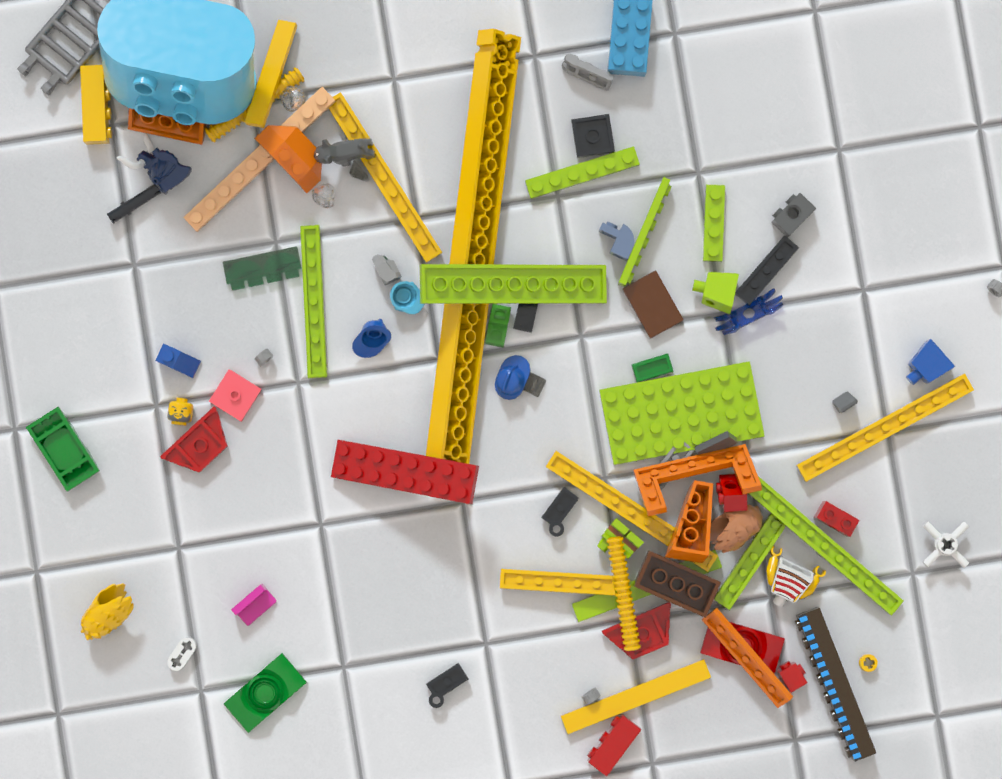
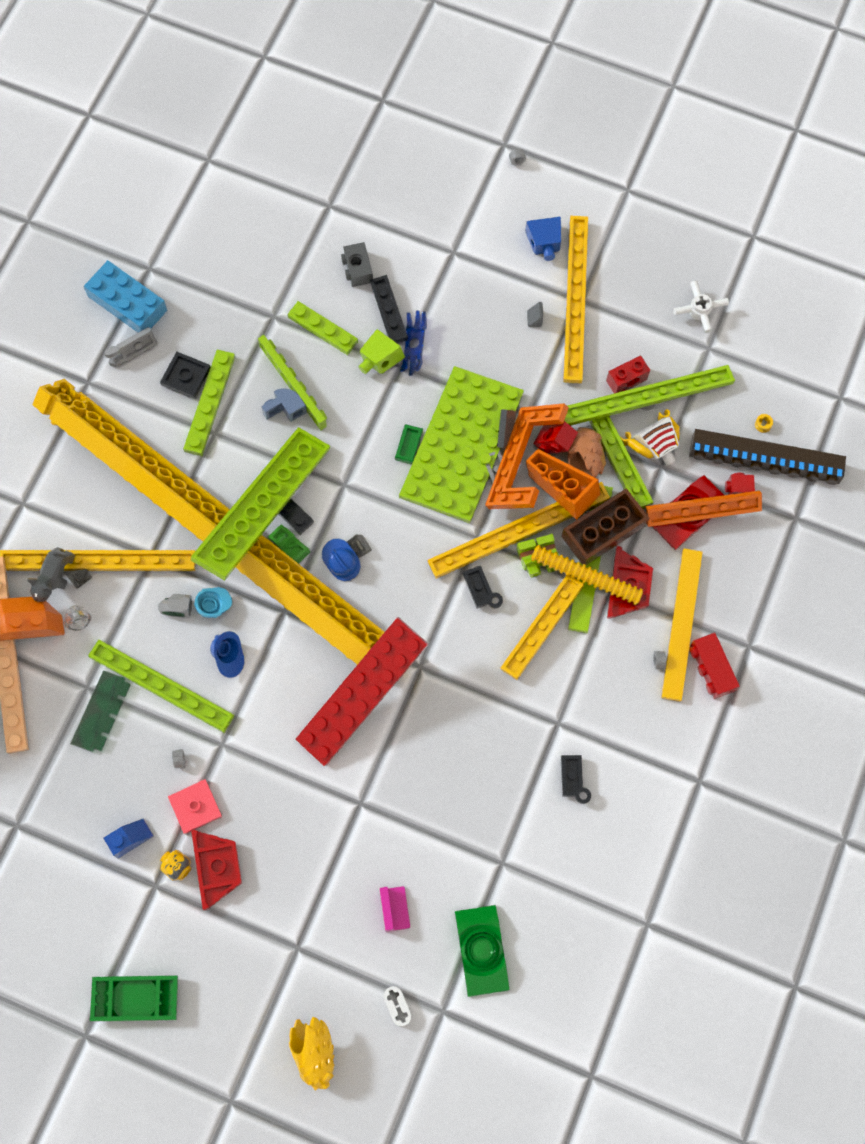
camera: 60 degrees left, 15 degrees down
(652, 304) = (356, 412): reddish brown tile -> none

